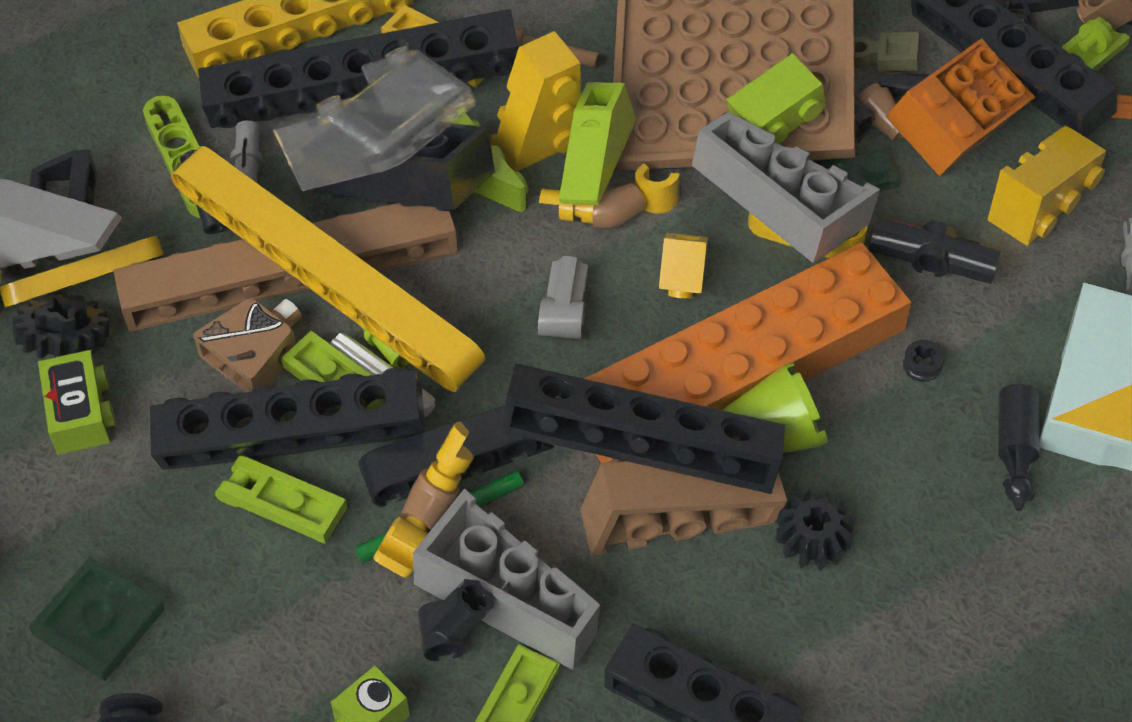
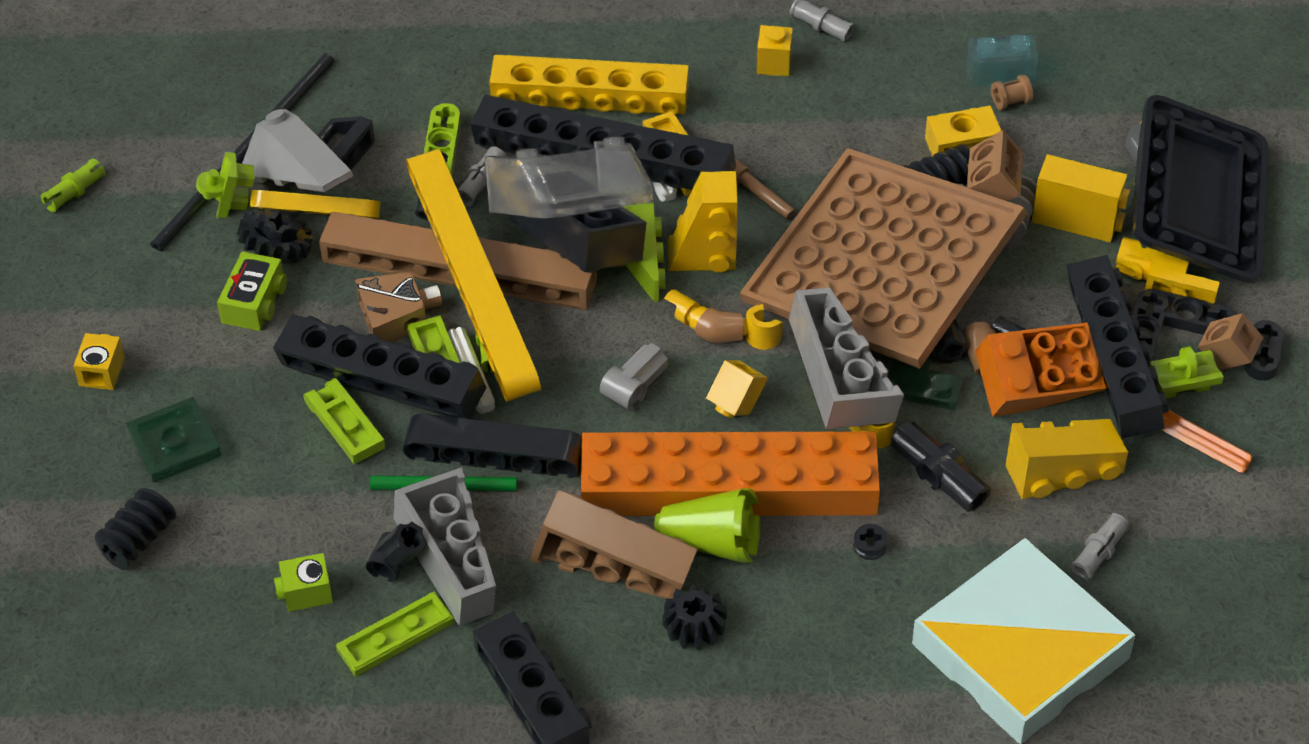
camera: 30 degrees right, 5 degrees down
(426, 503) = (438, 460): yellow piece -> none
(596, 141) = (732, 267): lime slope -> none
(643, 428) = (603, 481): black brick -> none
(780, 98) = (880, 298): lime brick -> none
(892, 52) = (1024, 307): olive plate -> none
(1018, 439) = (894, 630): black wheel -> none

